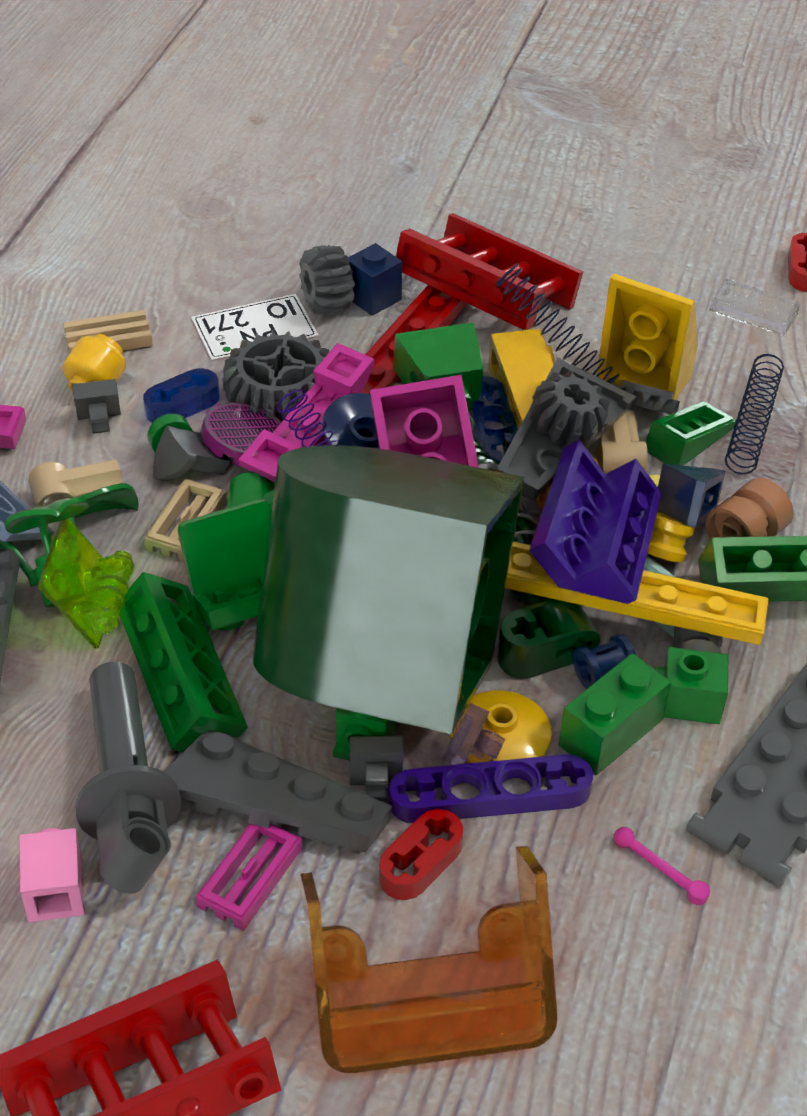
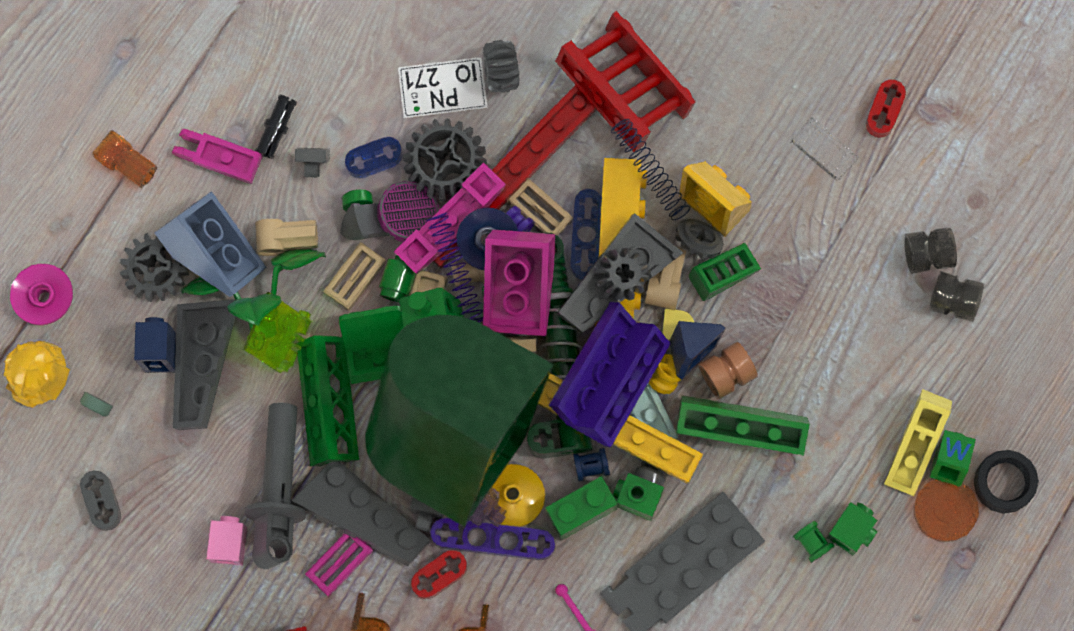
camera: 20 degrees right, 30 degrees up
(40, 383) = (276, 126): none -> black pin
(94, 360) = (315, 119): yellow head -> none
(127, 329) = (330, 78): tan tile -> none
(376, 279) = (538, 67): dark blue brick -> none
(441, 354) = (558, 188): green torso -> none
(747, 392) = (776, 266): dark blue piece -> none

